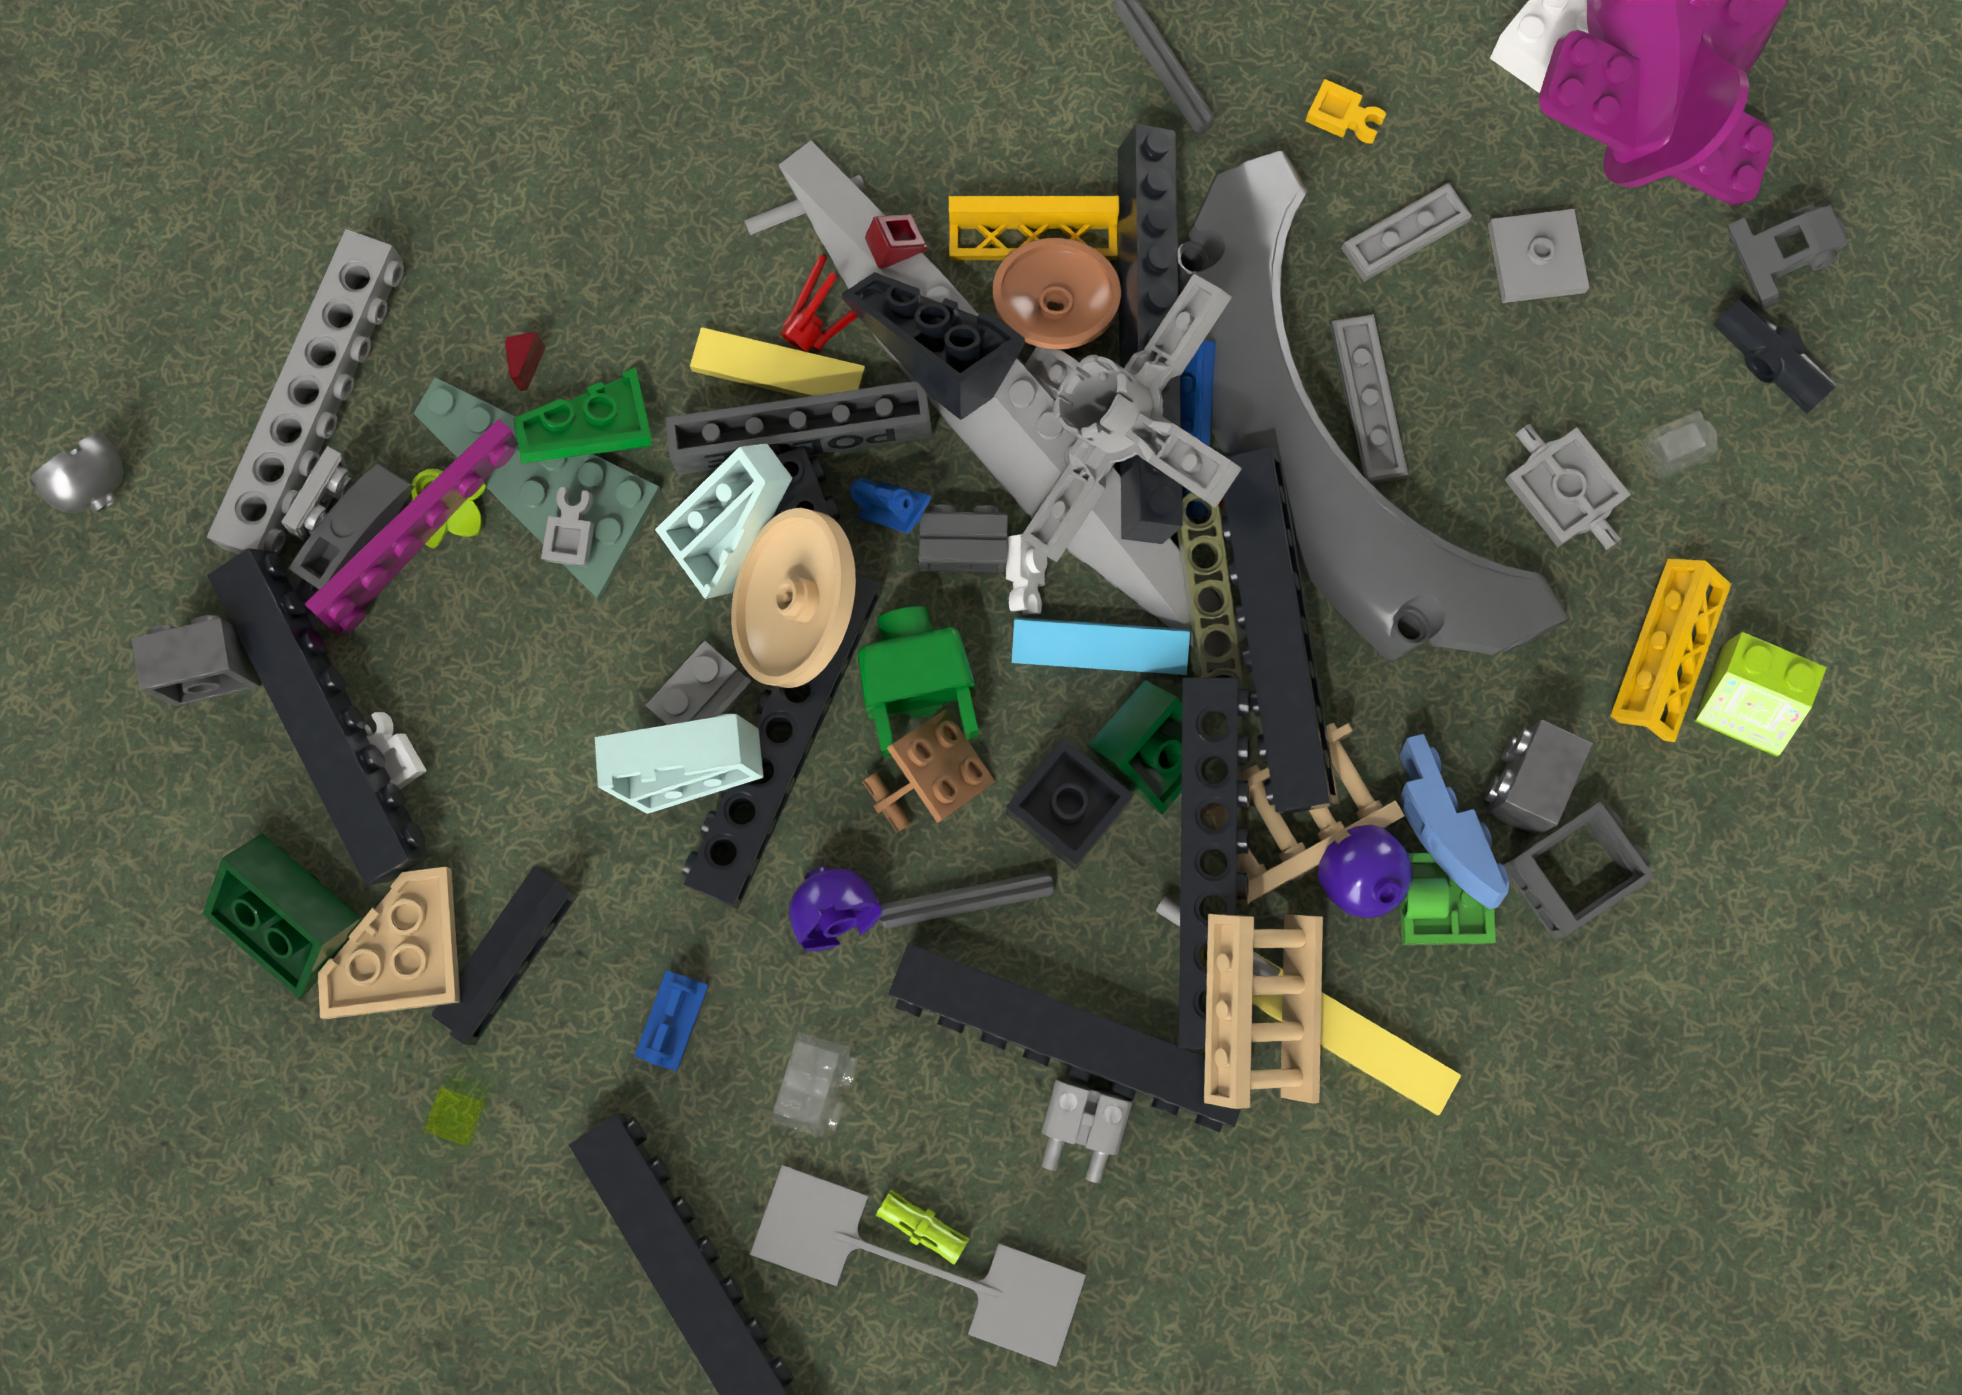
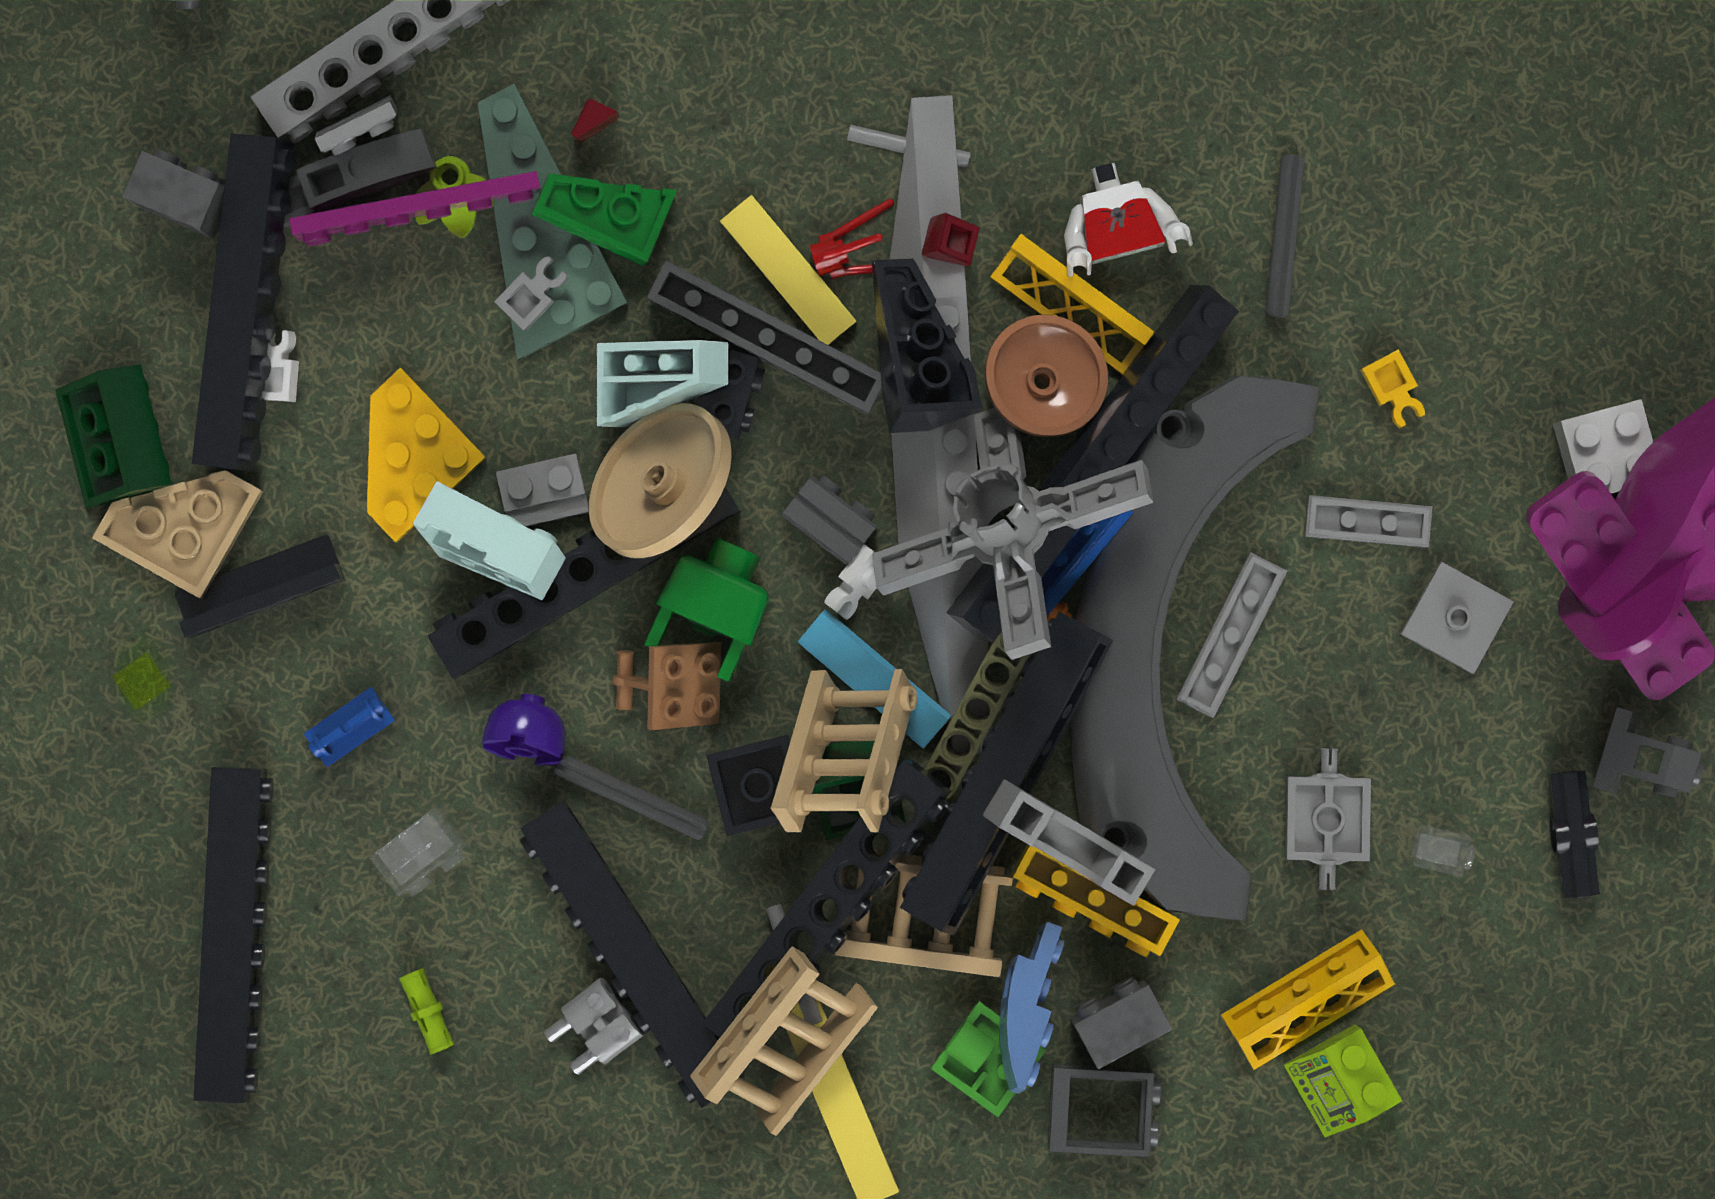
camera: 35 degrees right, 10 degrees up
(554, 743) = (409, 452): none -> yellow plate
(889, 504) = (792, 451): blue hinge -> none
(1020, 1302) = (459, 1114): light grey hinge -> none
(1024, 135) = (1118, 222): none -> torso
(1085, 719) = (815, 731): none -> tan fence
(1347, 643) = (1068, 842): none -> light grey arch
(1366, 872) = (939, 997): dark purple cylinder -> none
(1431, 689) = (1143, 924): none -> yellow brick

